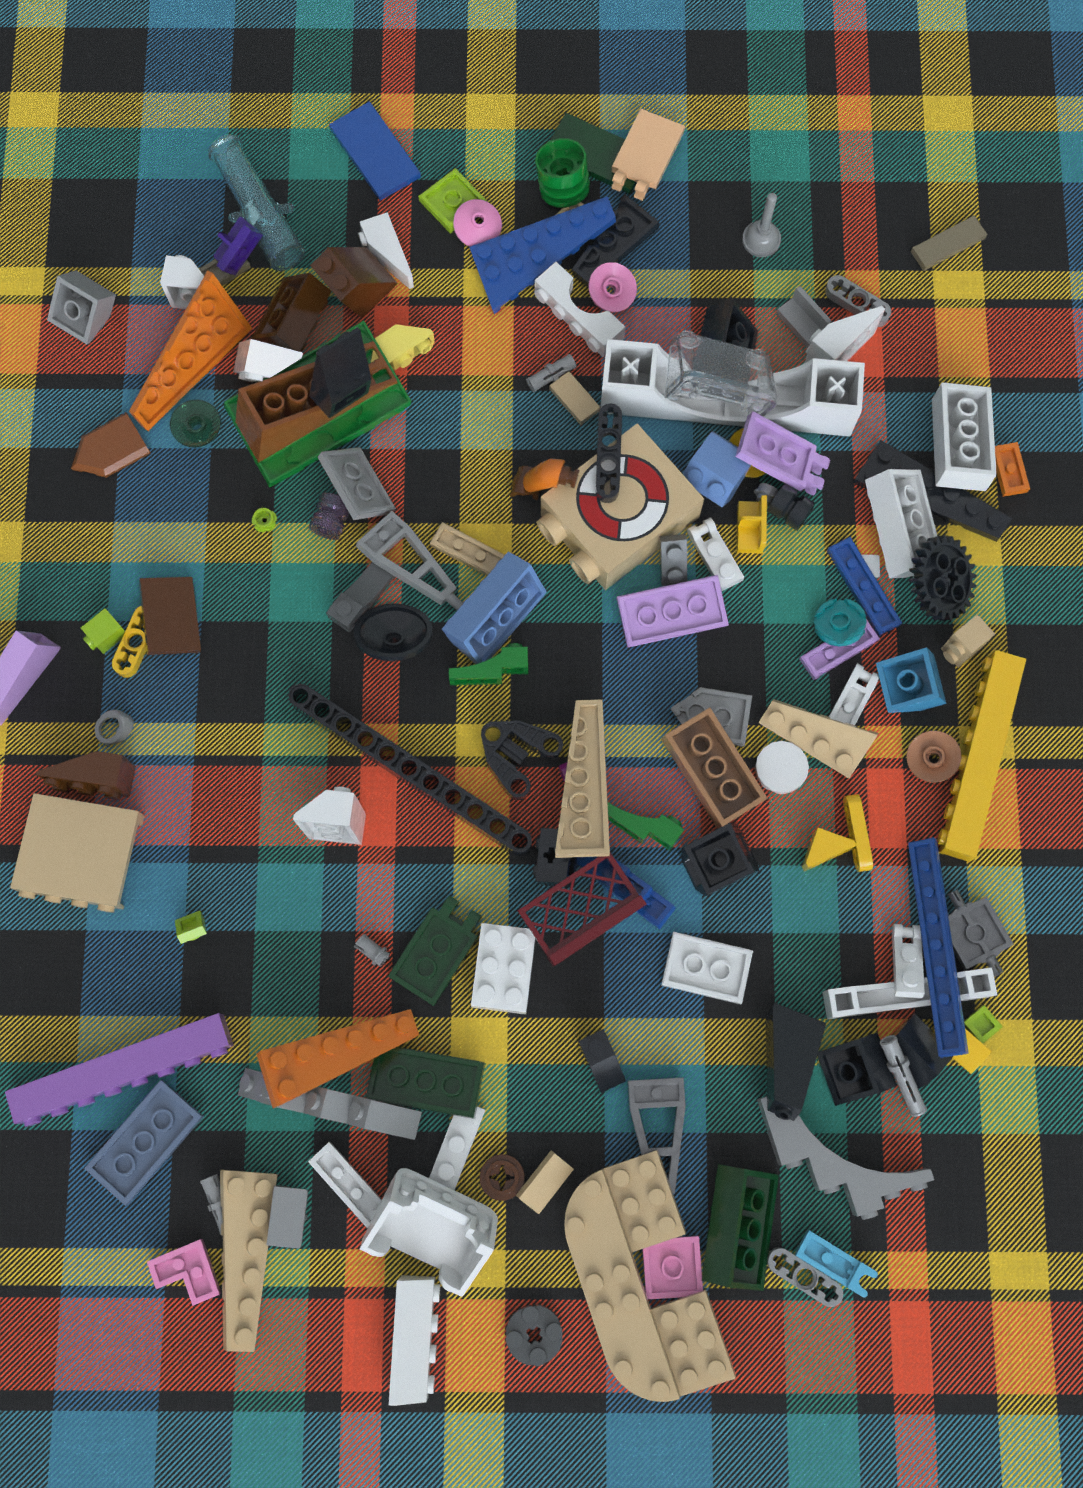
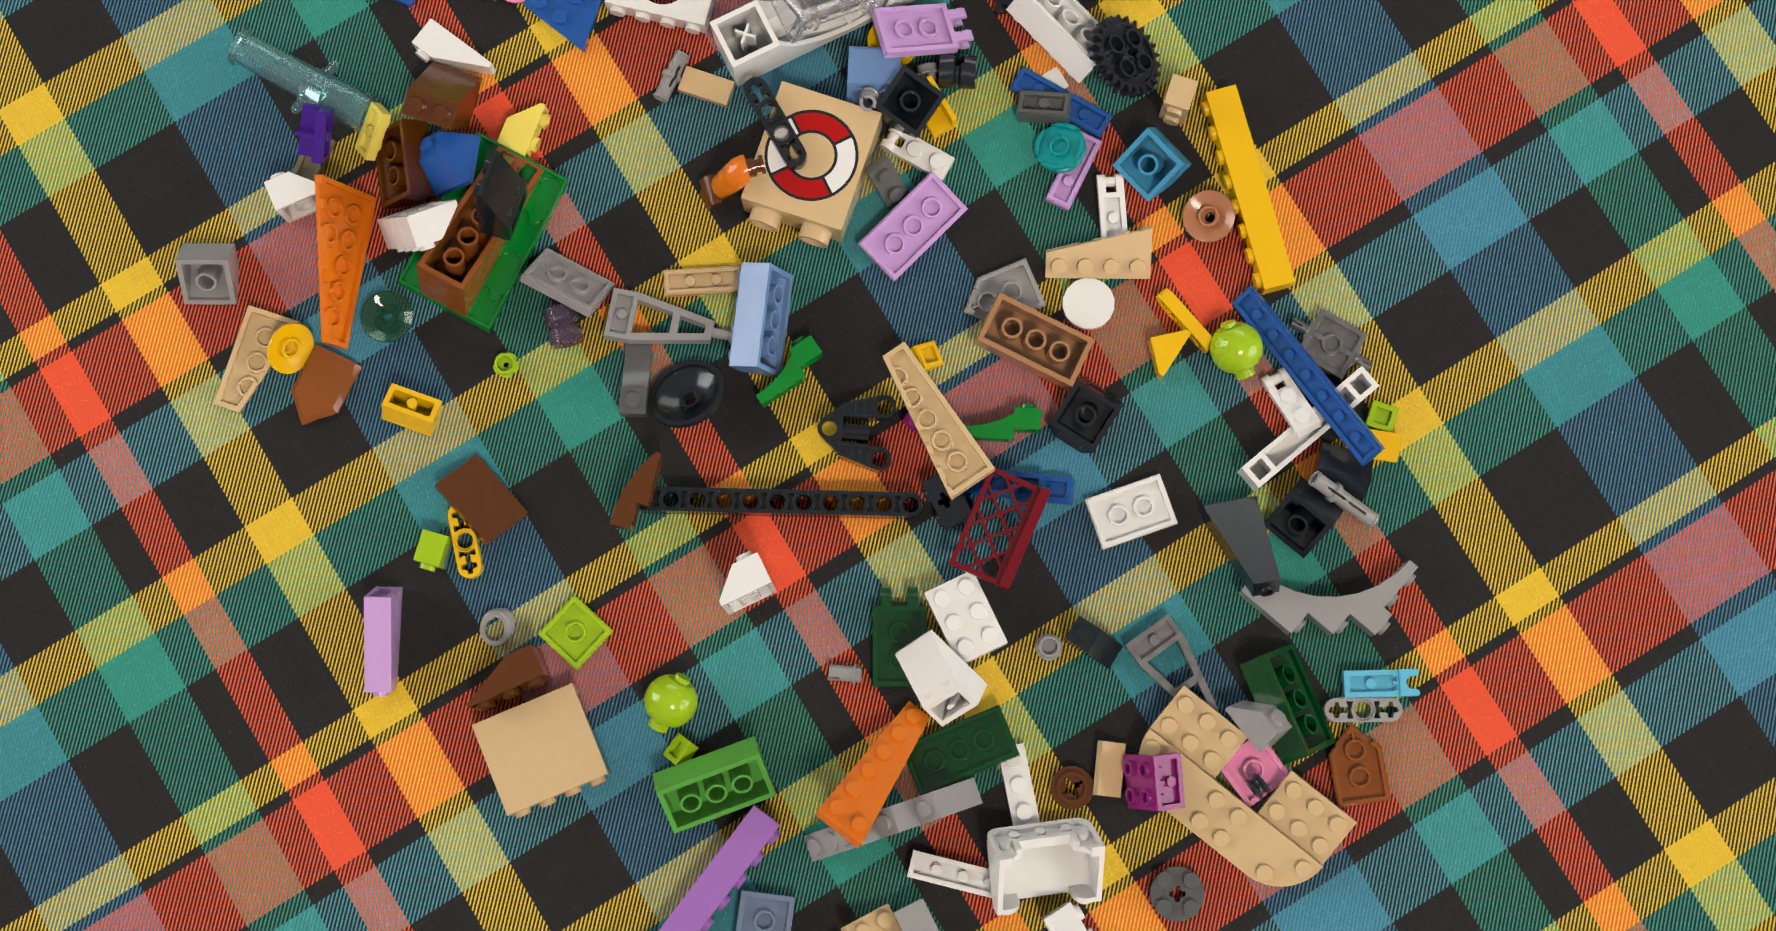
camera: 30 degrees left, 5 degrees up
(72, 389) = (248, 358): none -> tan wing
(102, 410) = (293, 356): none -> yellow dish
(163, 507) = (411, 409): none -> yellow brick
(173, 772) = (575, 632): none -> lime tile
(196, 973) = (714, 784): none -> bright green brick
(209, 879) = (670, 701): none -> lime brick
(277, 277) = (373, 131): none -> light yellow plate
(296, 686) = (637, 493): none -> reddish brown slope
(323, 325) = (449, 160): none -> blue slope
(447, 1006) = (940, 678): none -> white slope
(560, 1040) = (1048, 647): none -> light grey plate
(576, 1220) = (1154, 781): none -> magenta bracket
(615, 726) = (928, 355): none -> yellow slope
(666, 1284) = (1257, 786): none -> black bush
(703, 1228) = (1259, 722): none -> light grey slope
(706, 481) = (871, 93): none -> light grey pin
(733, 504) = (909, 102): none -> black slope
(767, 1330) = (1358, 770): none -> dark orange tile
(846, 580) = (1043, 107): none -> dark grey slope
(888, 884) = (1236, 348): none -> lime brick

